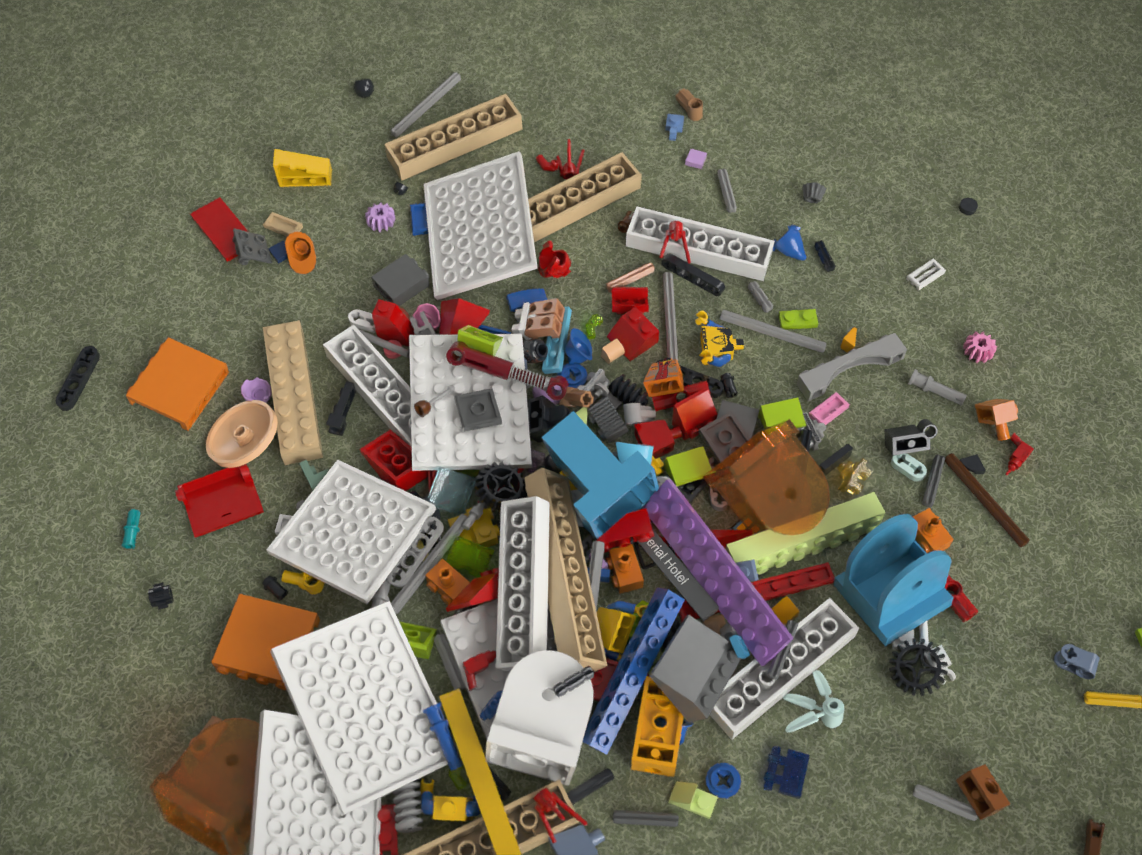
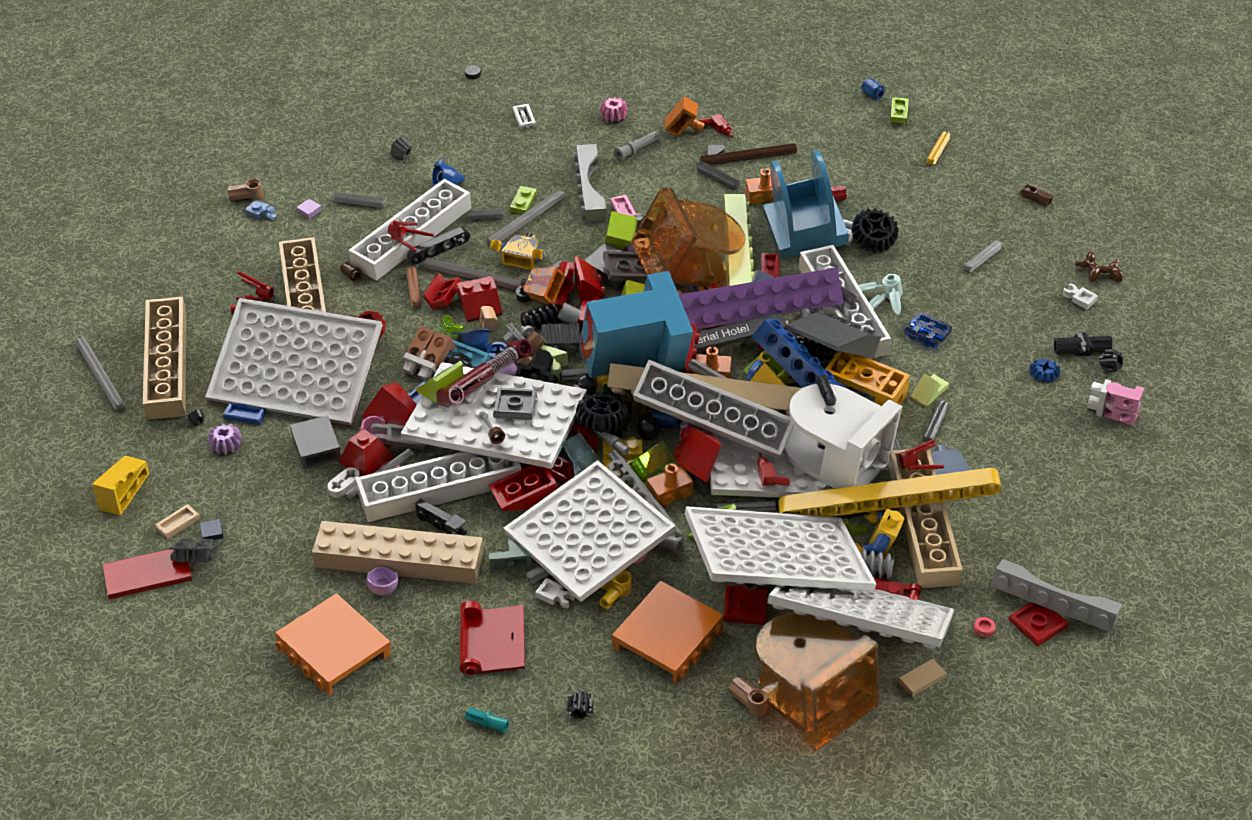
camera: 70 degrees left, 15 degrees down
(74, 377) = (270, 734): black beam -> none
(241, 433) = (429, 598): light nougat dish -> none
(270, 583) = (612, 615): black pin -> none
(300, 252) = (231, 507): orange piece -> none
(363, 88) = (42, 411): black piece -> none
(439, 726) = (813, 513): blue pin -> none
(491, 707) = (814, 461): blue gear -> none
(517, 299) = (394, 360): blue slope -> none
(723, 770) = (923, 363): blue gear -> none
(729, 386) = (559, 256): black pin -> none
(739, 646) = (822, 306): dark azure tile -> none
(825, 256) = (469, 164): black axle -> none
(848, 341) = (566, 175): light orange slope -> none
(908, 467) = (698, 184): light aqua beam -> none
(910, 438) = (678, 171): black hinge -> none
(982, 792) = (984, 231): dark orange brick -> none
(1077, 661) = (902, 154): sand blue piece -> none

